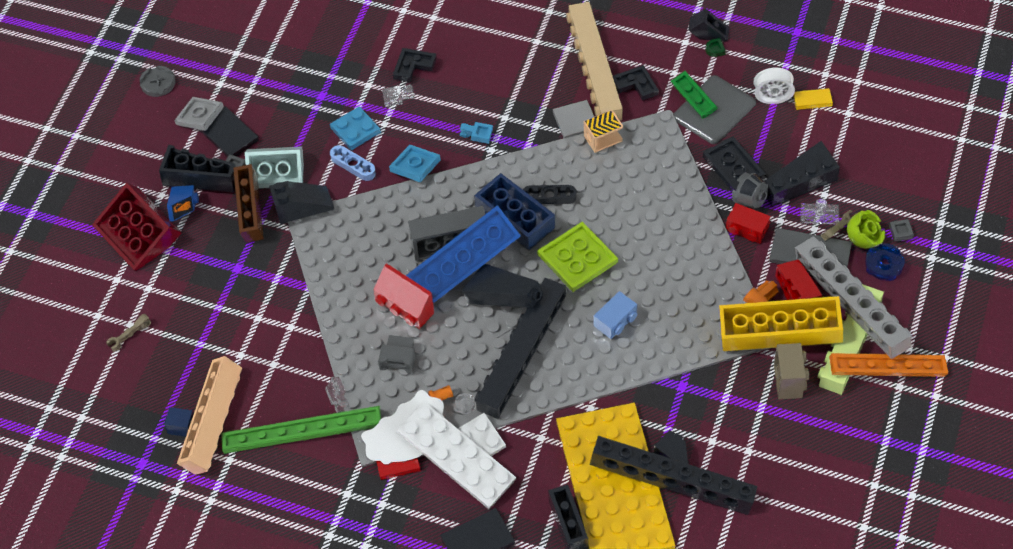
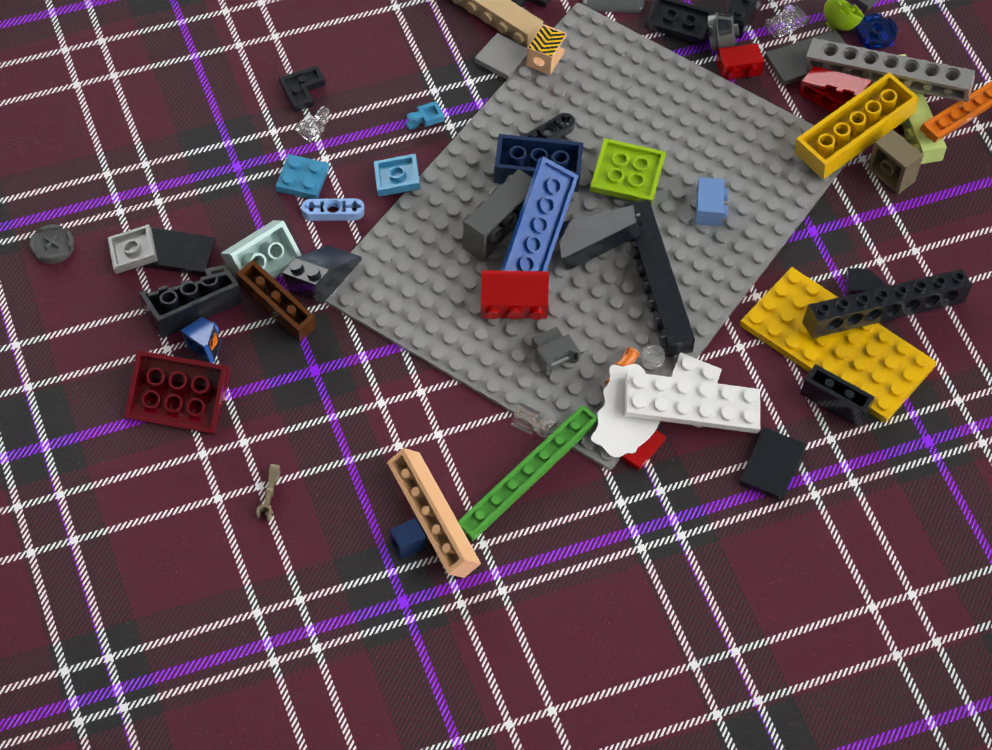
camera: 45 degrees left, 0 degrees up
(763, 293) = (810, 113): orange piece -> none
(839, 225) = (814, 14): dark tan piece -> none

